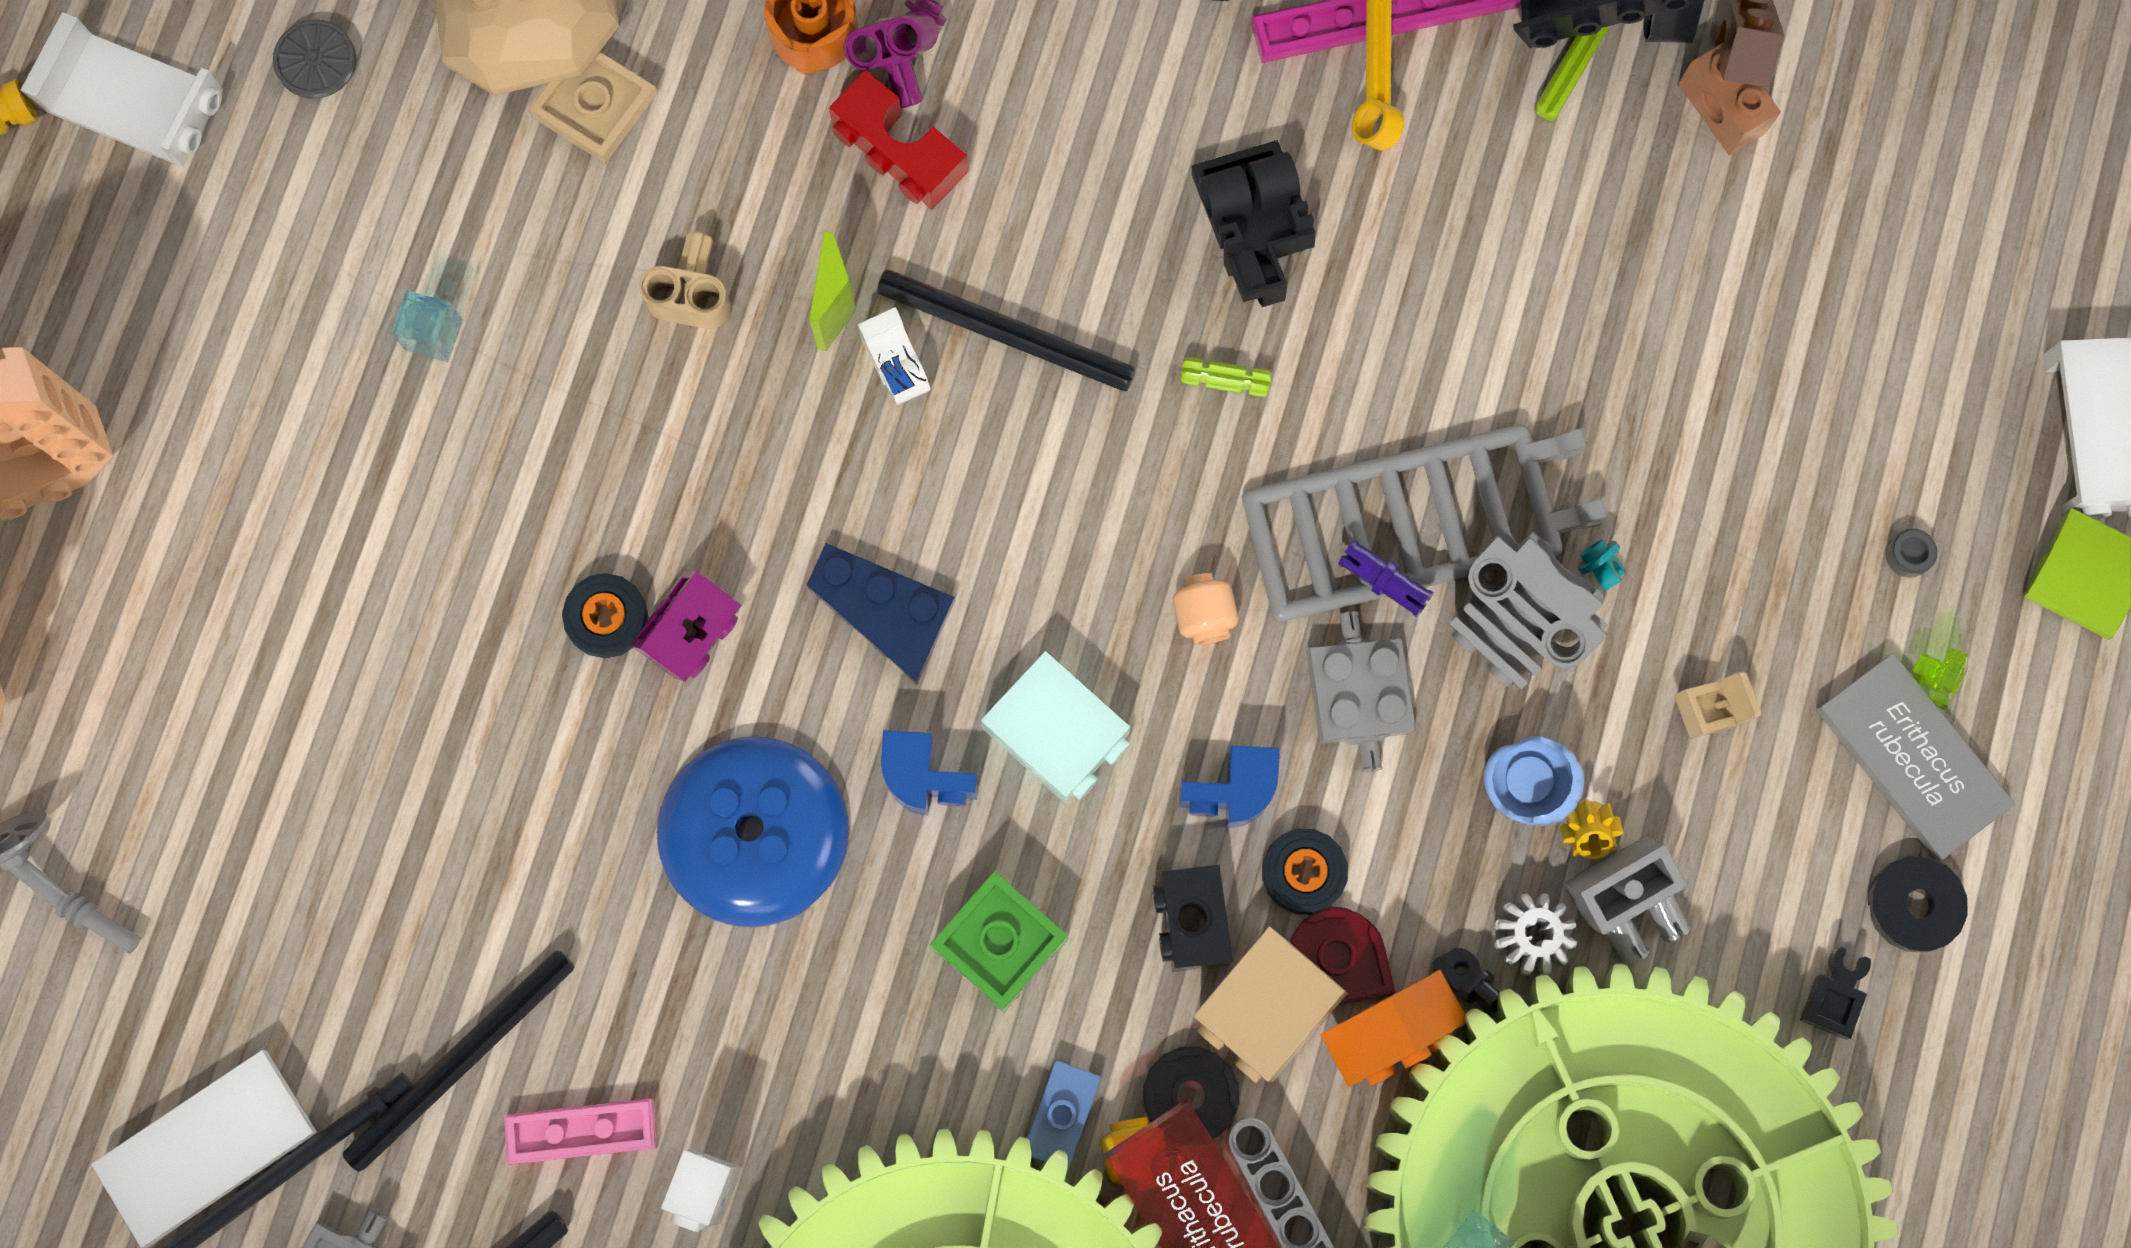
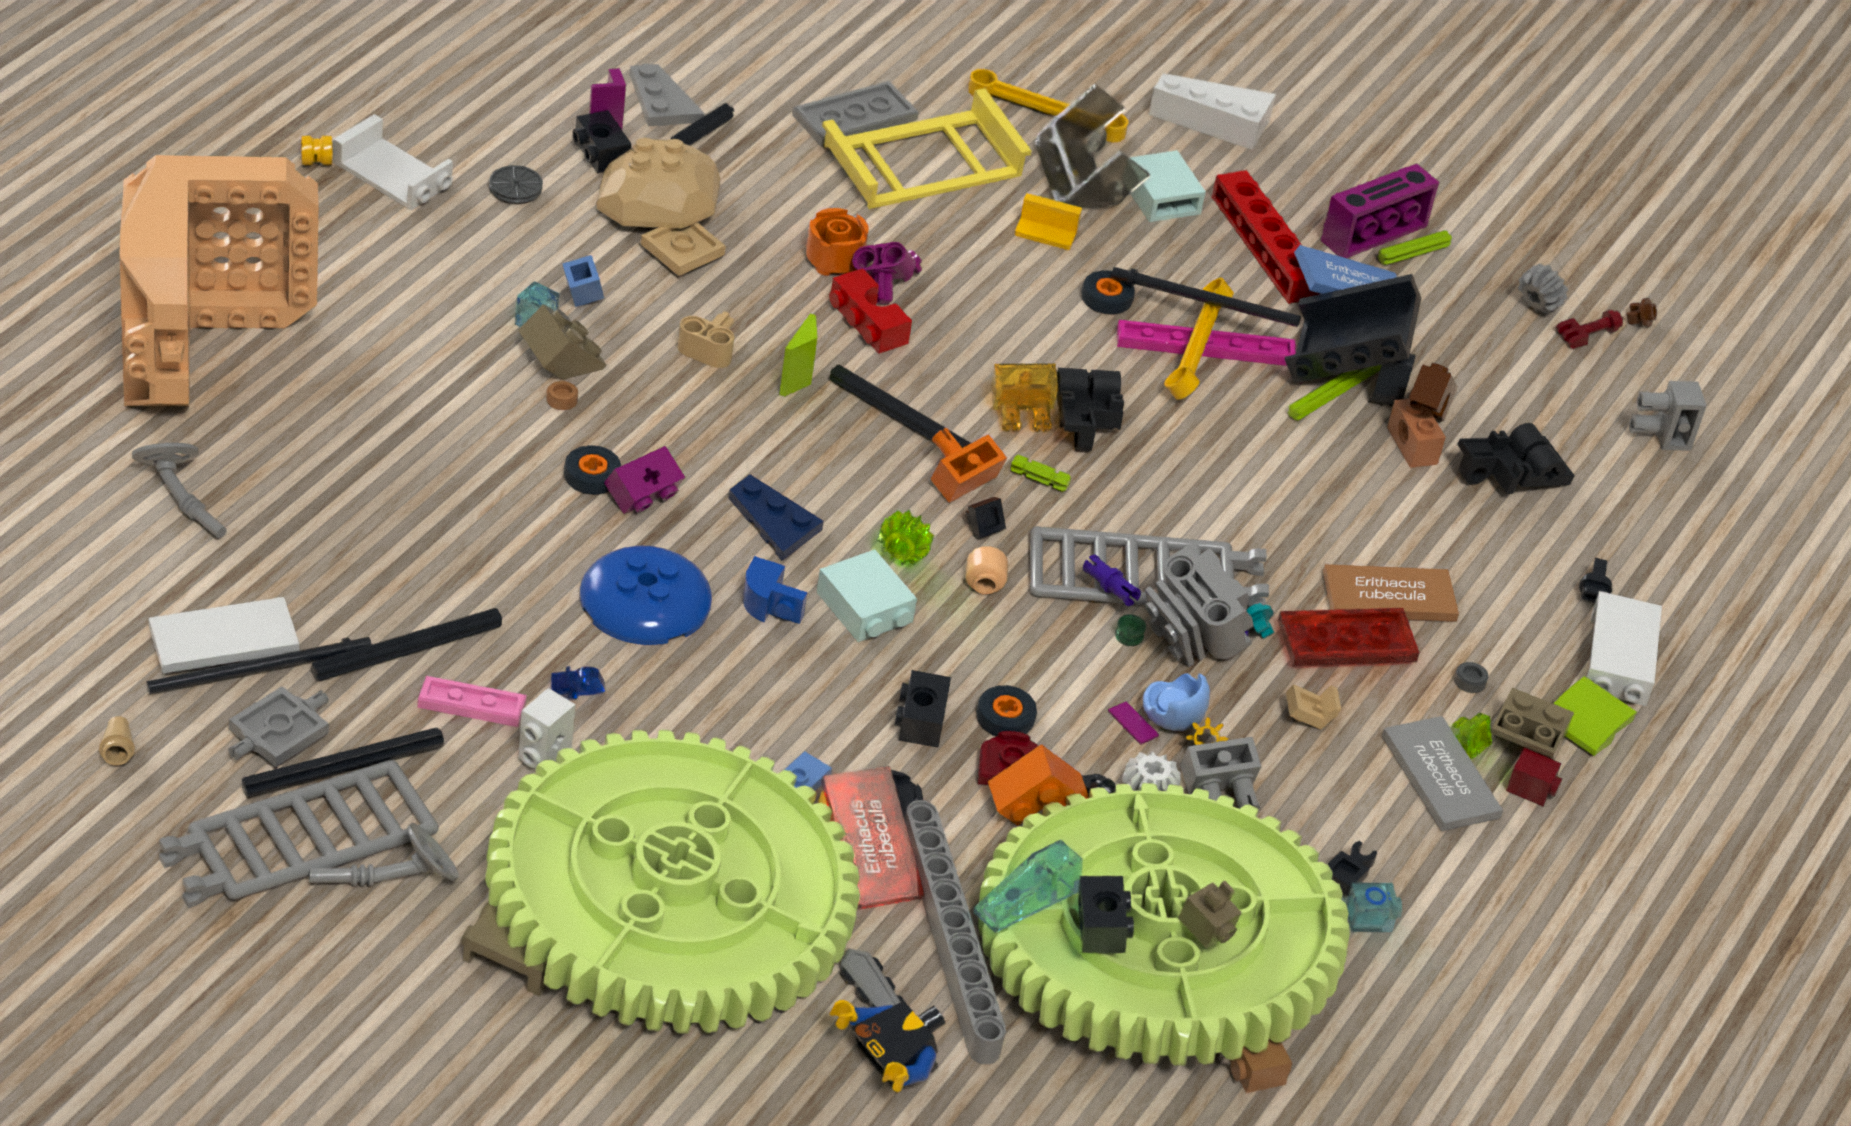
camera: 10 degrees right, 35 degrees down
(475, 249) = (583, 281): none -> medium blue brick
(485, 386) = (561, 344): none -> dark tan slope
(517, 477) = (562, 395): none -> medium nougat tile
(701, 1050) = (578, 683): none -> clear blue piece
(894, 356) = (828, 401): white leg -> none
(999, 941) = (788, 676): bright green panel -> none
(1079, 603) = (905, 537): none -> clear neon green gear
(1122, 423) = (967, 466): none -> orange brick
(1170, 222) = (1024, 387): none -> clear yellow brick
(1176, 505) = (986, 517): none -> black tile
(1248, 791) = (976, 660): blue brick -> none
(1268, 1006) = (959, 756): tan brick -> none
(1360, 691) = (1075, 638): light grey plate -> none
(1433, 631) = (1130, 630): none -> clear green bush
(1477, 816) = (1133, 722): none -> magenta window
(1730, 546) = (1348, 636): none -> clear red plate
(1764, 429) = (1420, 591): none -> medium nougat tile
(1882, 103) = (1520, 458): none -> black plate
(1888, 1061) = (1373, 907): none -> clear light blue brick
(1945, 900) = (1425, 830): black tile -> none
(2023, 644) = (1532, 723): none -> dark tan slope
(2043, 309) = (1595, 581): none -> black piece
(2045, 728) = (1535, 777): none -> dark red brick

